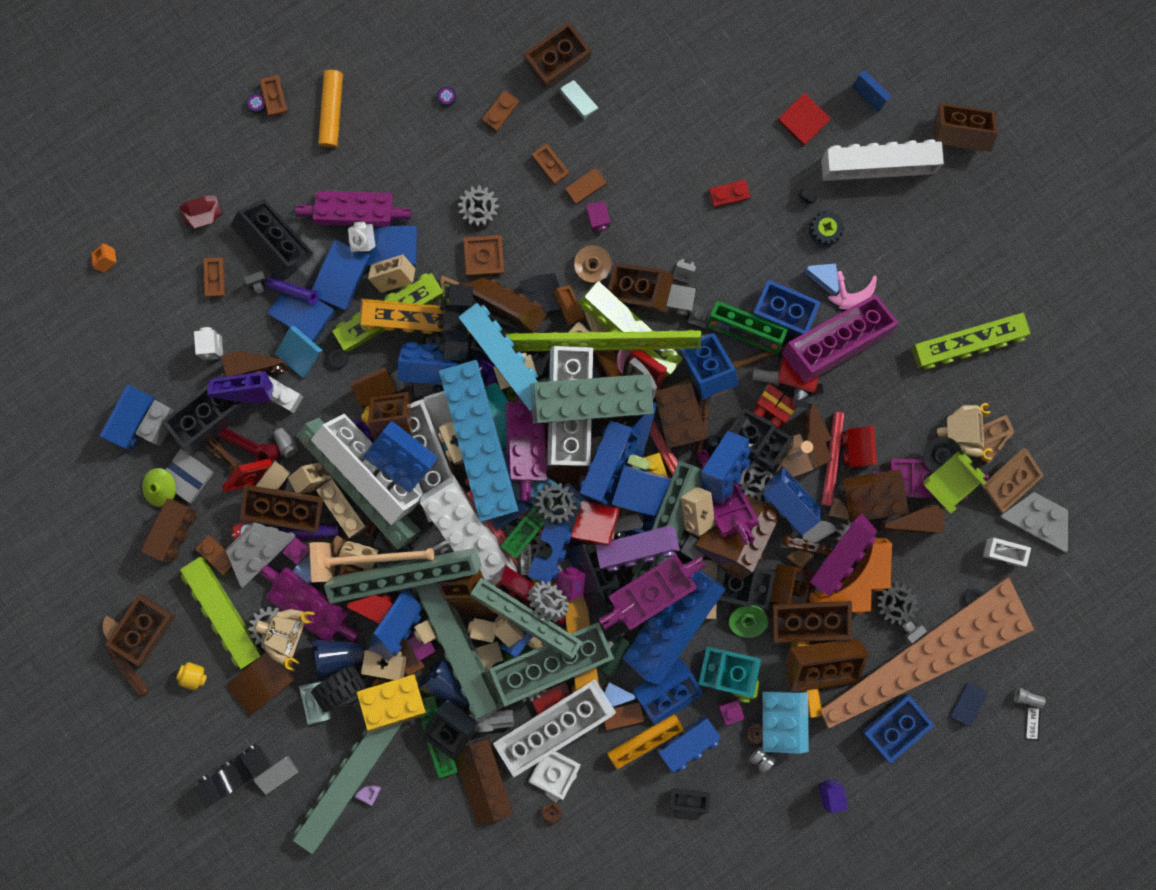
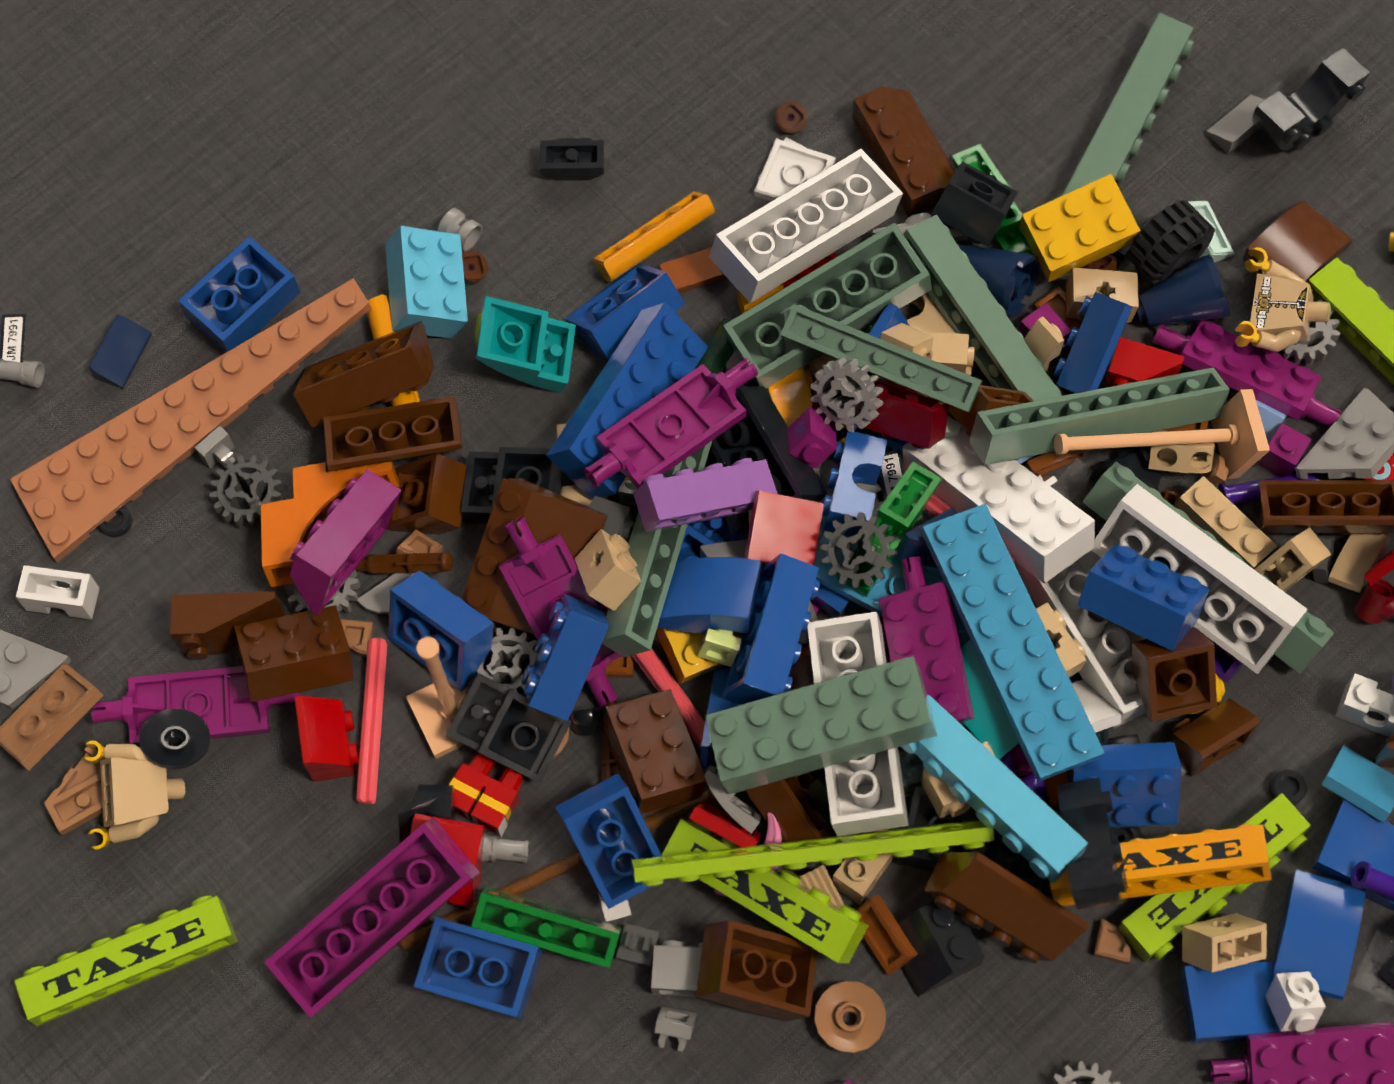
camera: 175 degrees left, 15 degrees down
(285, 443) = (1349, 628): light grey cone -> none
(368, 794) = (1088, 113): lavender tile -> none
(484, 255) = (1057, 1009): dark orange plate -> none
(617, 695) = (709, 295): light blue slope -> none
(689, 744) = (582, 231): blue brick -> none
(731, 712) = (518, 287): magenta brick -> none
(751, 626) = (500, 431): bright green dish -> none
(817, 433) = (403, 736): reddish brown slope -> none
(824, 276) = (407, 1050): light blue slope -> none
(833, 796) = (339, 183): dark purple brick -> none
(846, 300) = (355, 1012): bright pink piece -> none
(954, 480) = (155, 693): lime panel -> none

